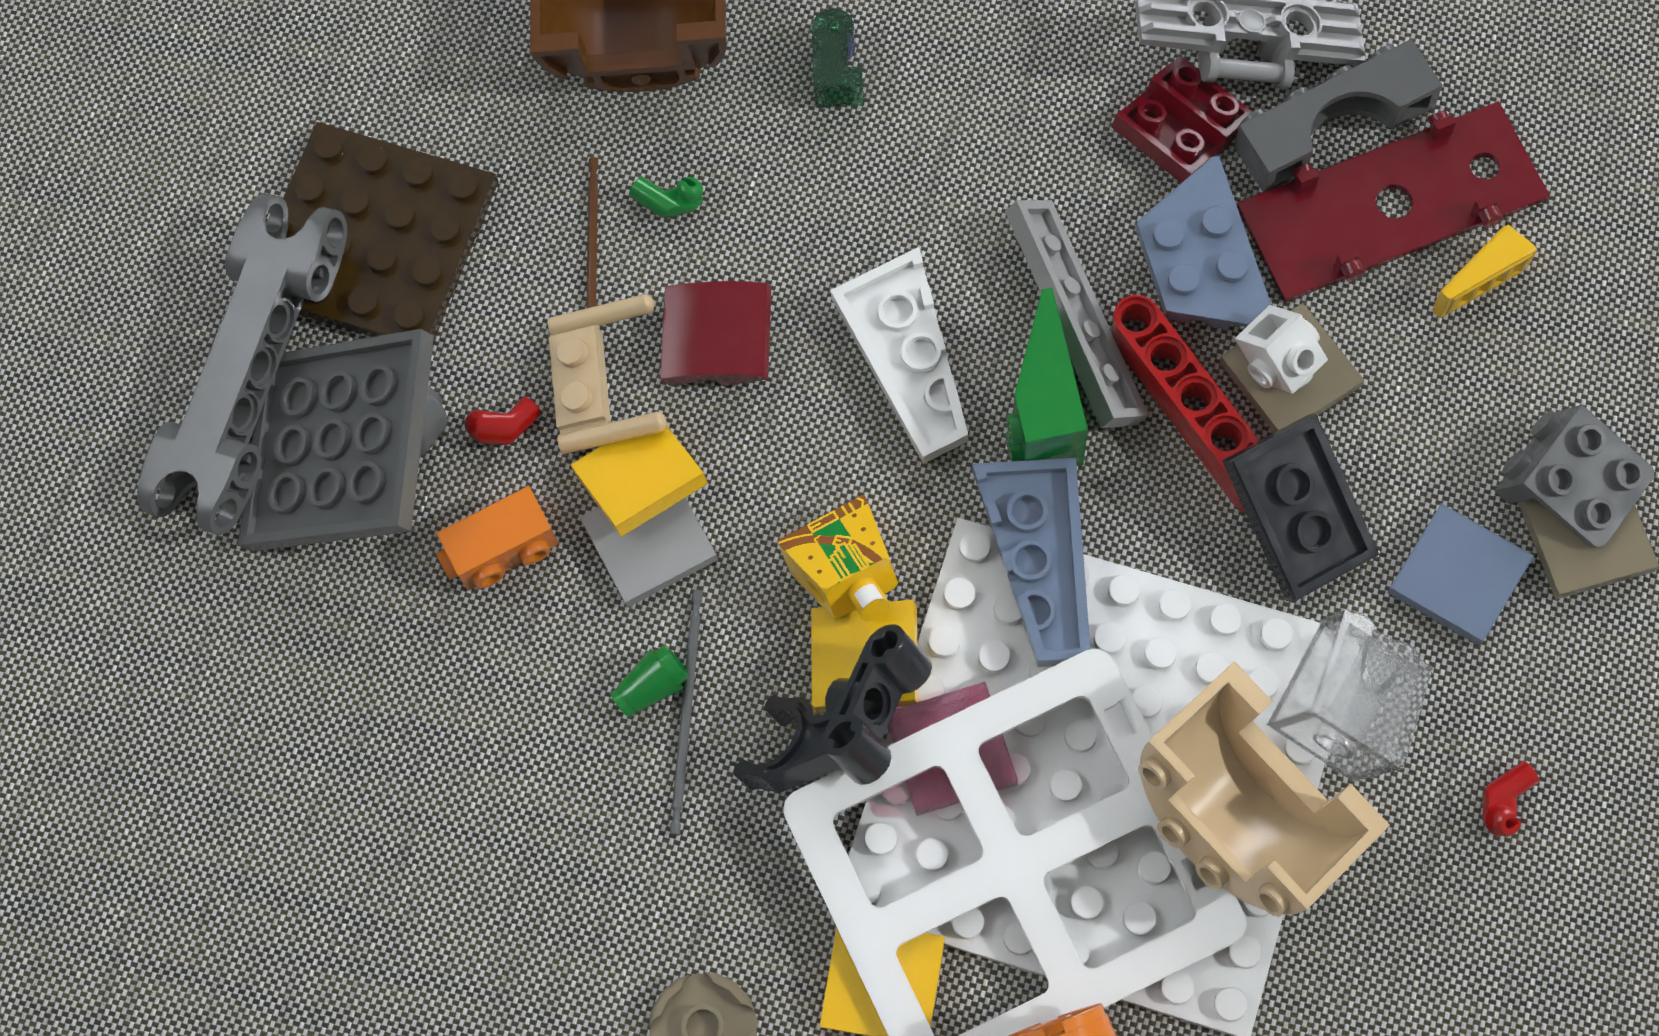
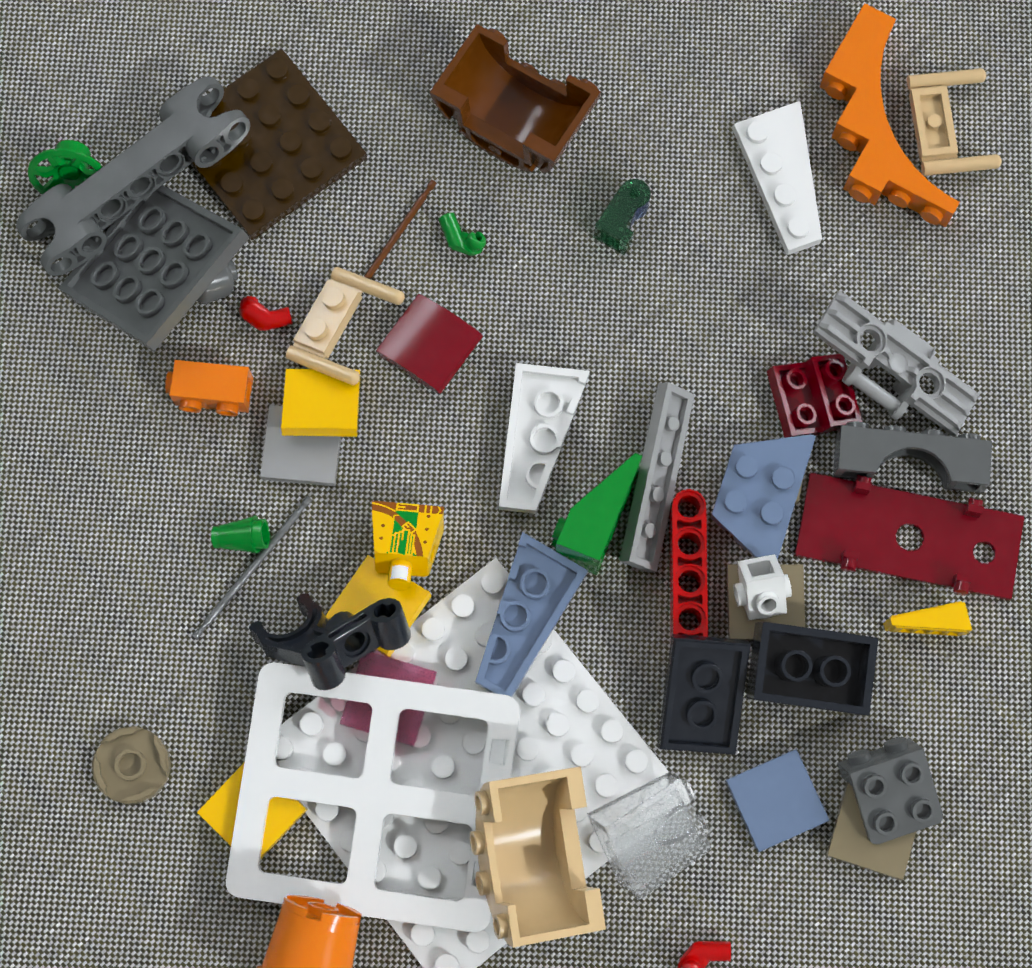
camera: 25 degrees right, 5 degrees up
(156, 401) = (68, 165): none -> green wheel
(1399, 400) = (812, 668): none -> black brick

